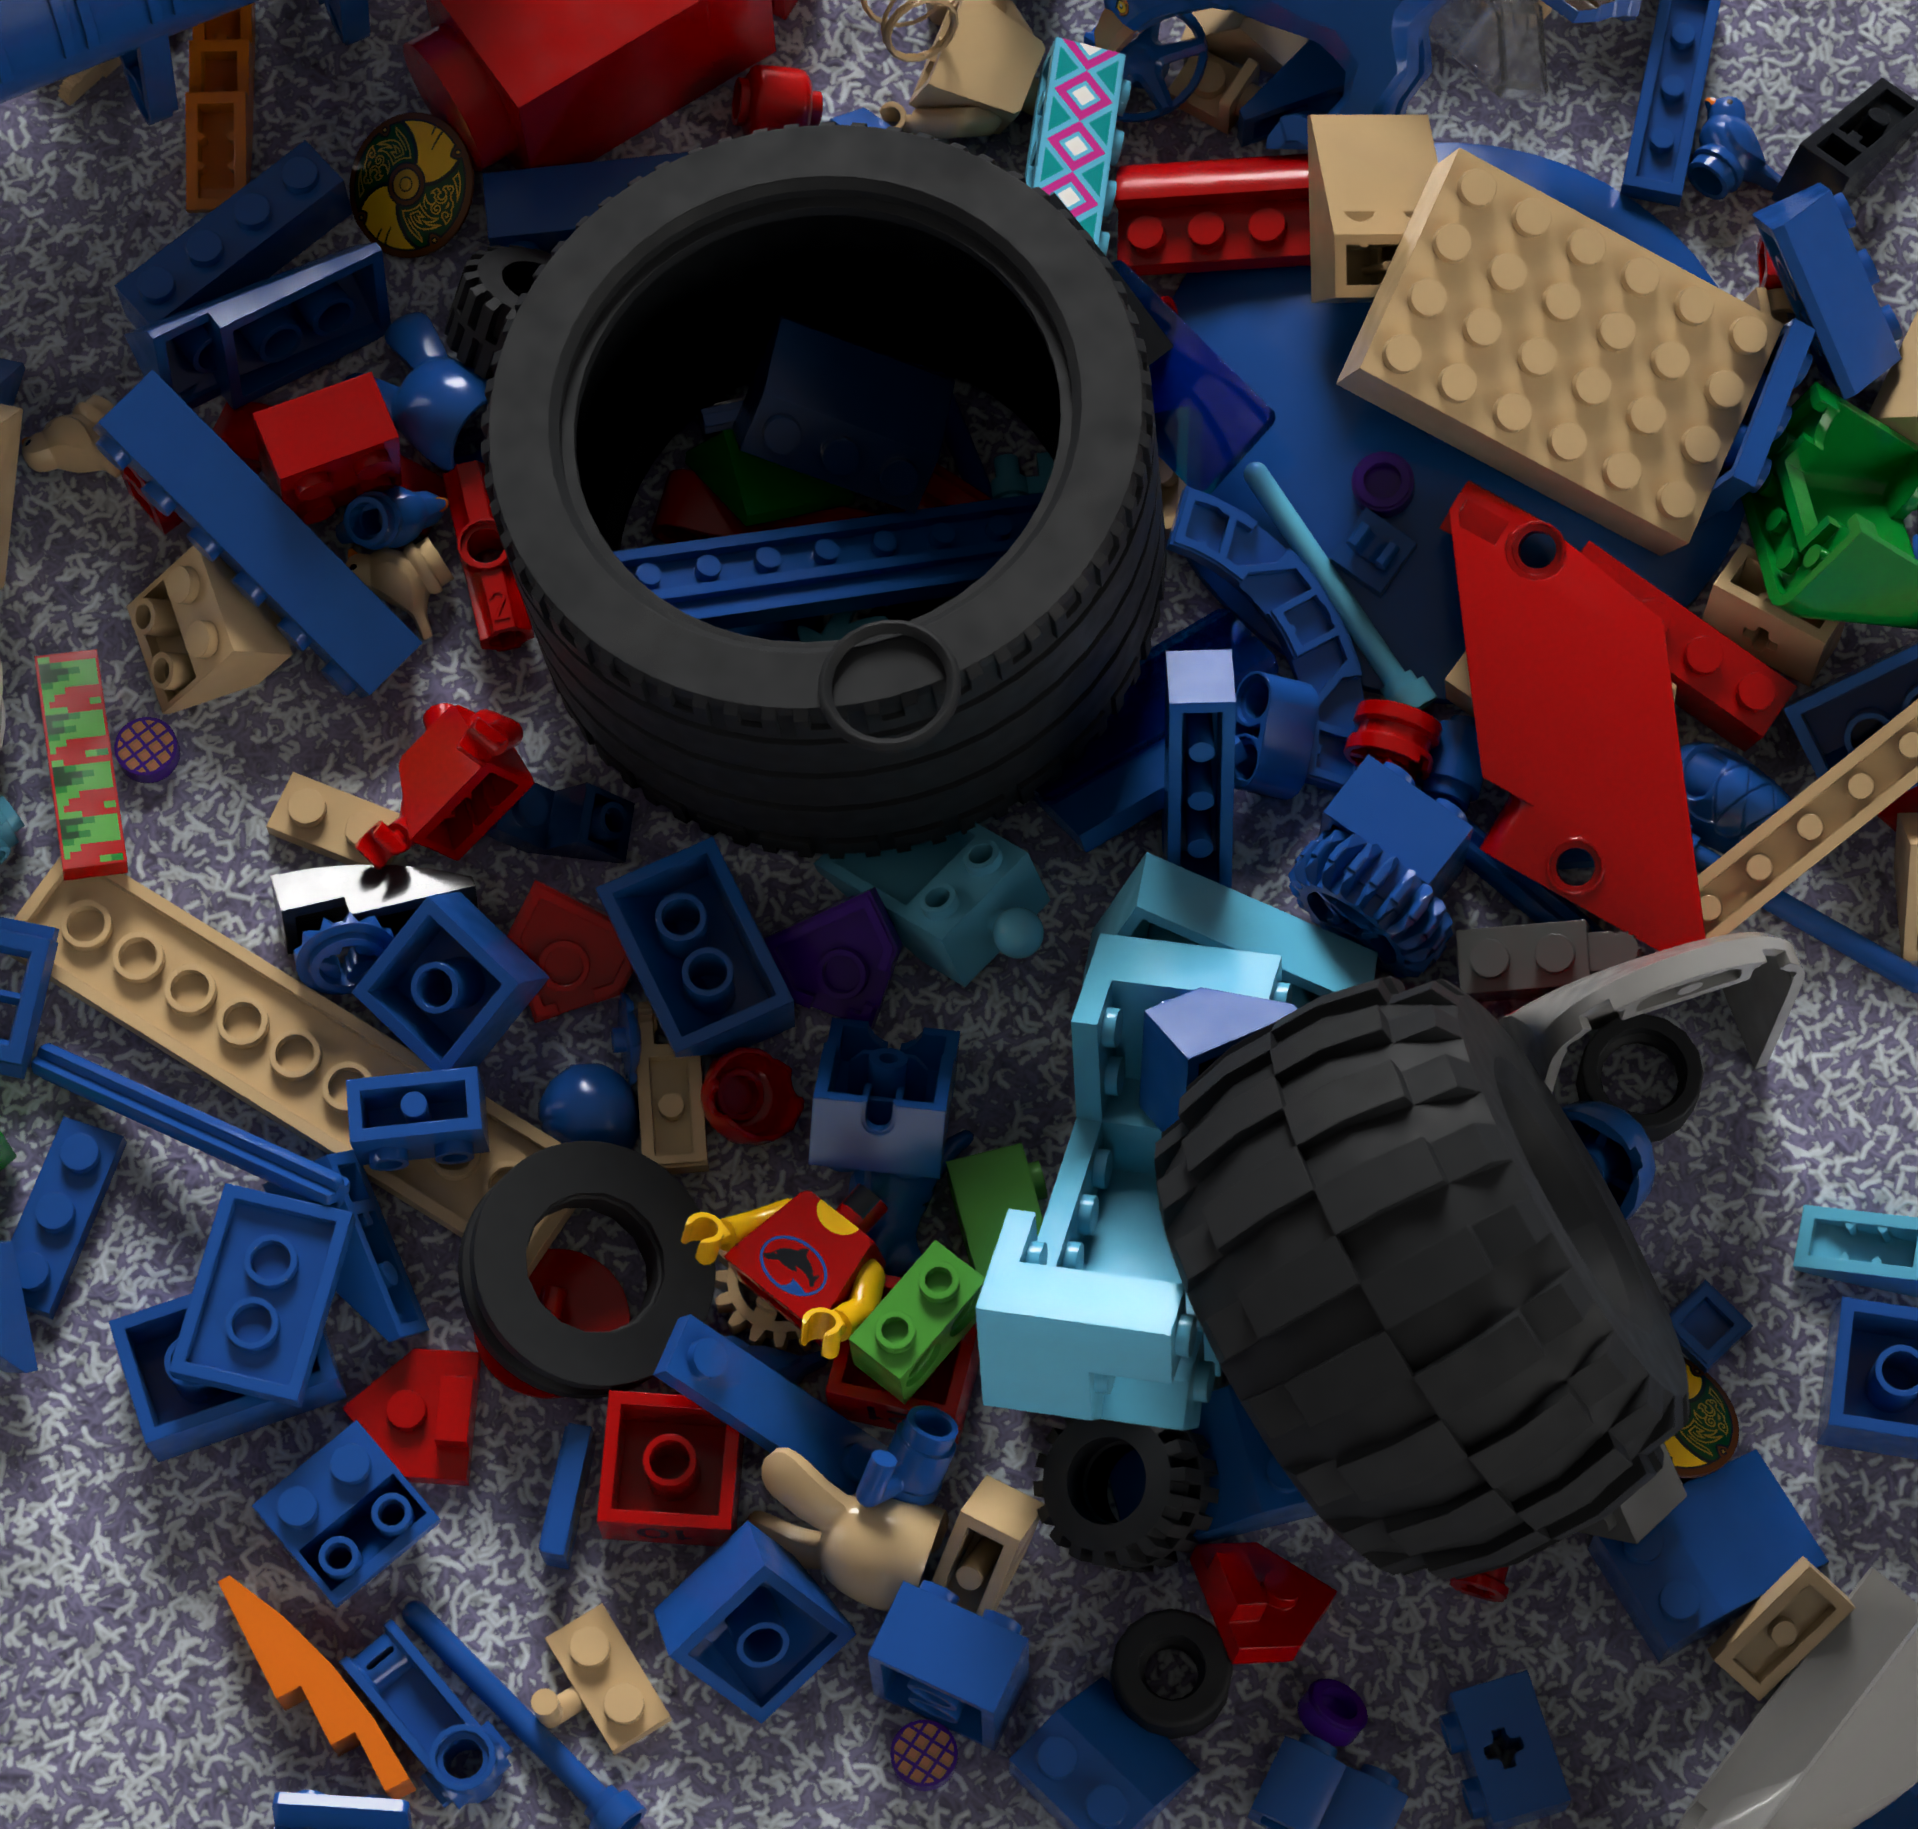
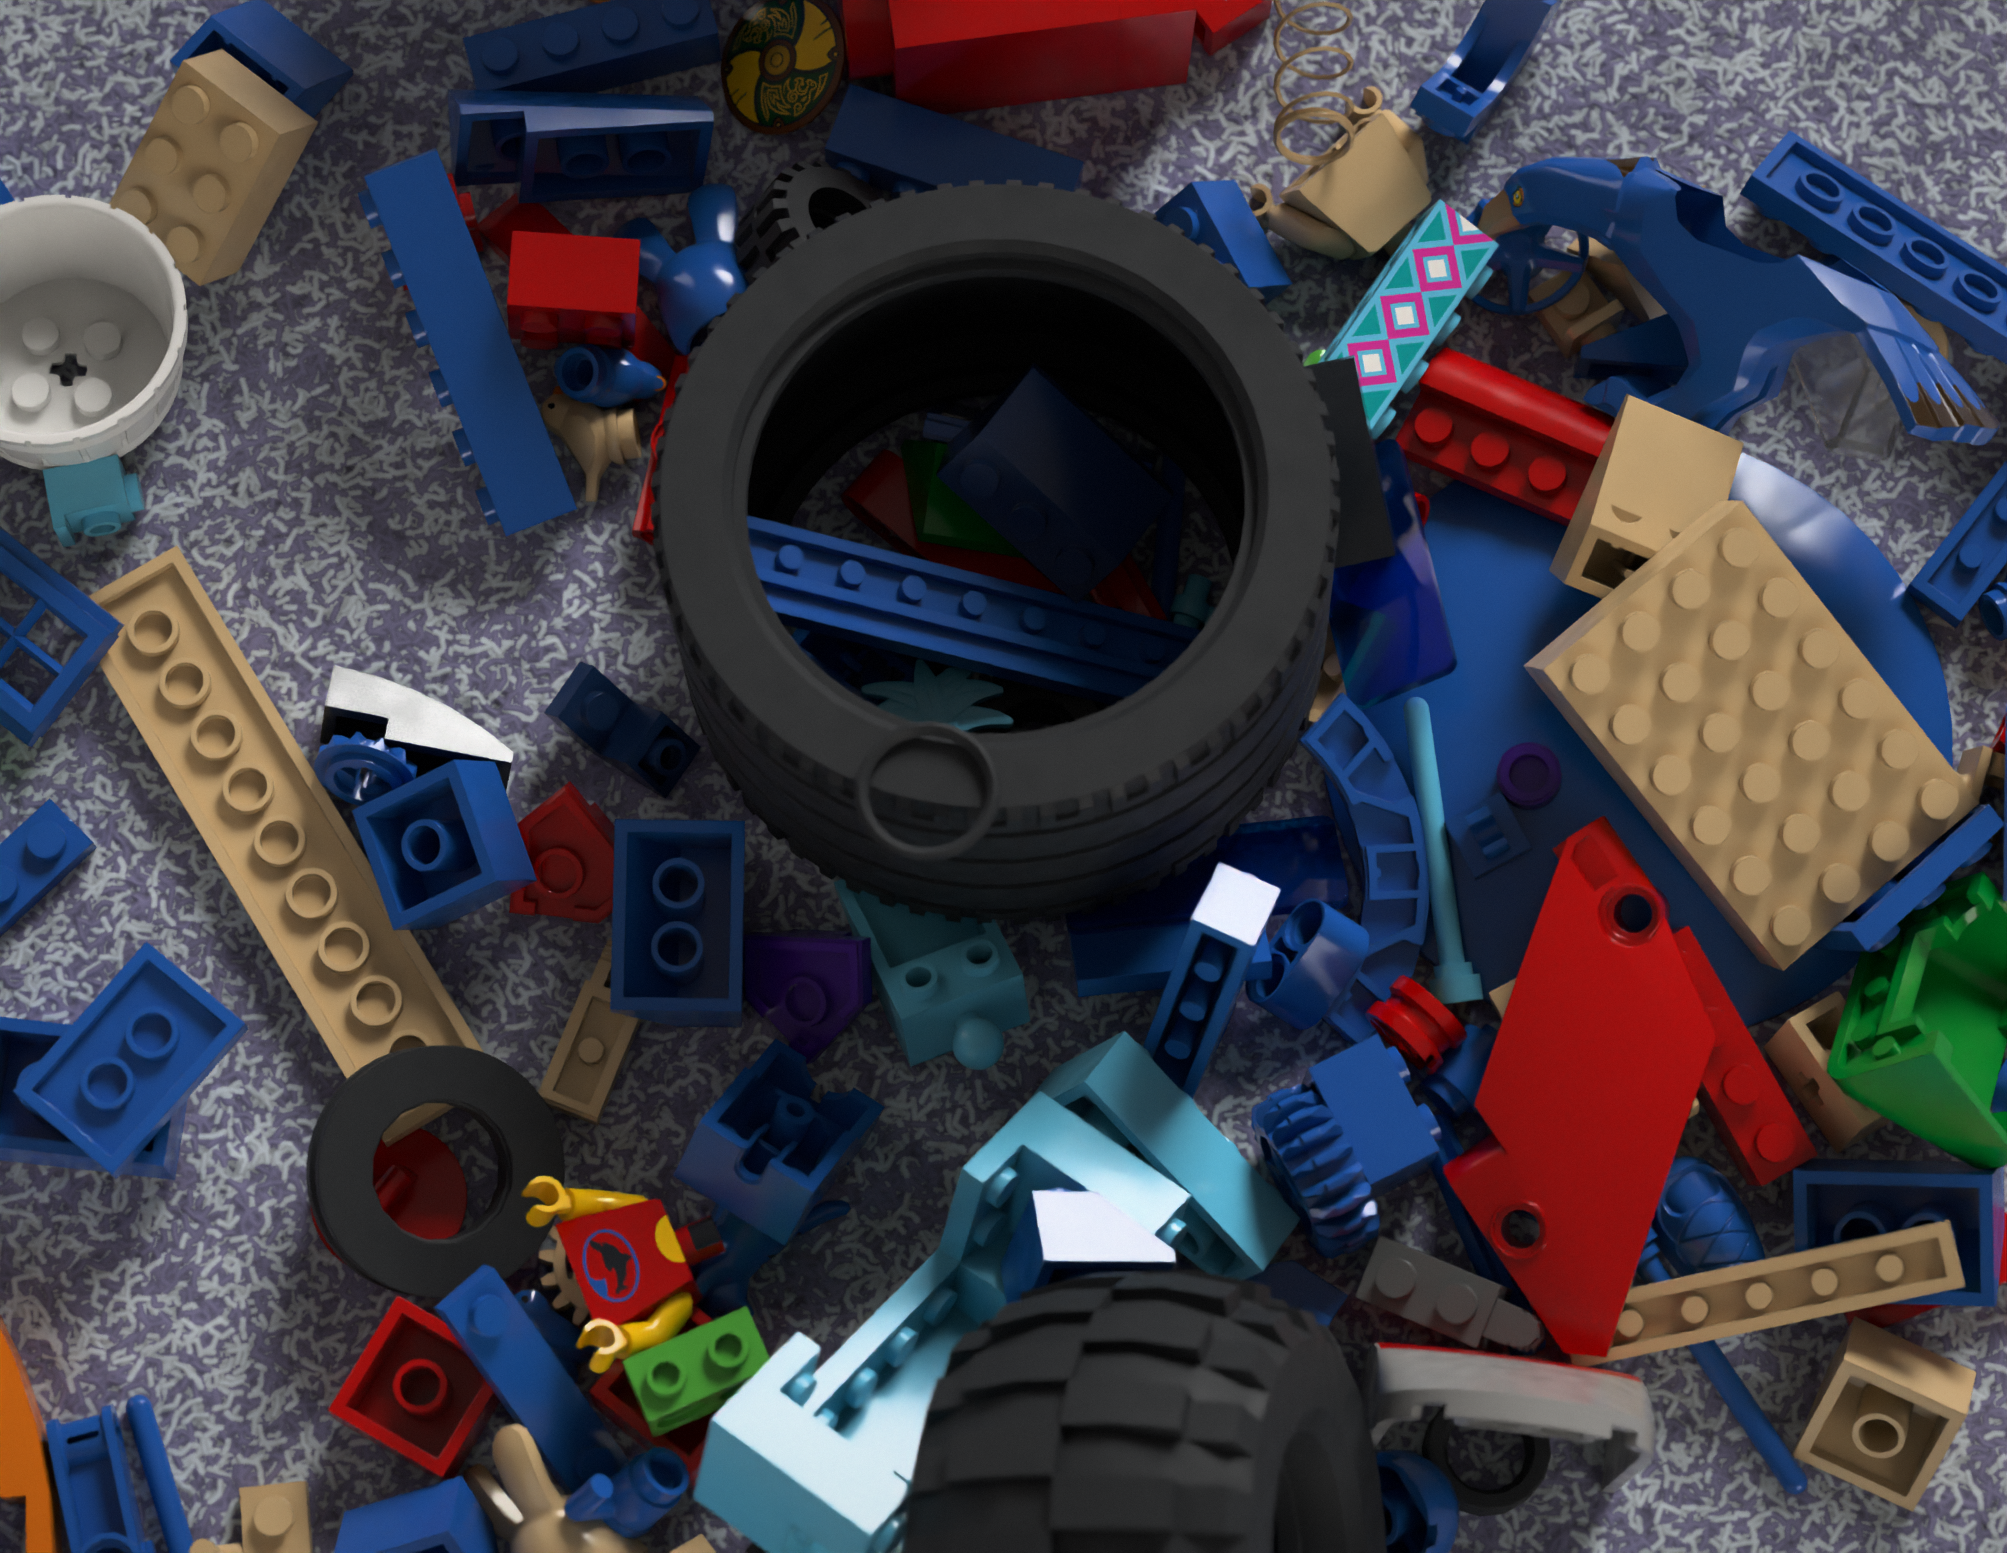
camera: 20 degrees right, 5 degrees up
(70, 441) = (354, 156): tan animal -> none
(80, 765) = (219, 477): tile -> none
(147, 750) = (288, 489): tile -> none
(191, 1126) = (150, 868): blue axle -> none
(203, 634) = (386, 407): tan slope -> none
(325, 819) = (424, 640): tan plate -> none
(345, 1514) = (116, 1292): blue slope -> none
(372, 1271) = (250, 1076): blue slope -> none
(417, 1117) = (351, 958): blue brick -> none
(424, 1414) = (233, 1229): red plate -> none
(452, 784) = (540, 658): red torso -> none
(567, 1495) = (321, 1367): blue tile -> none
(590, 1105) = (517, 1019): blue hair -> none
(627, 1038) = (580, 970): blue piece -> none
(750, 1097) = (665, 1078): red hair -> none
(775, 98) = (1156, 138): red head -> none
(985, 1189) = (836, 1288): bright green brick -> none

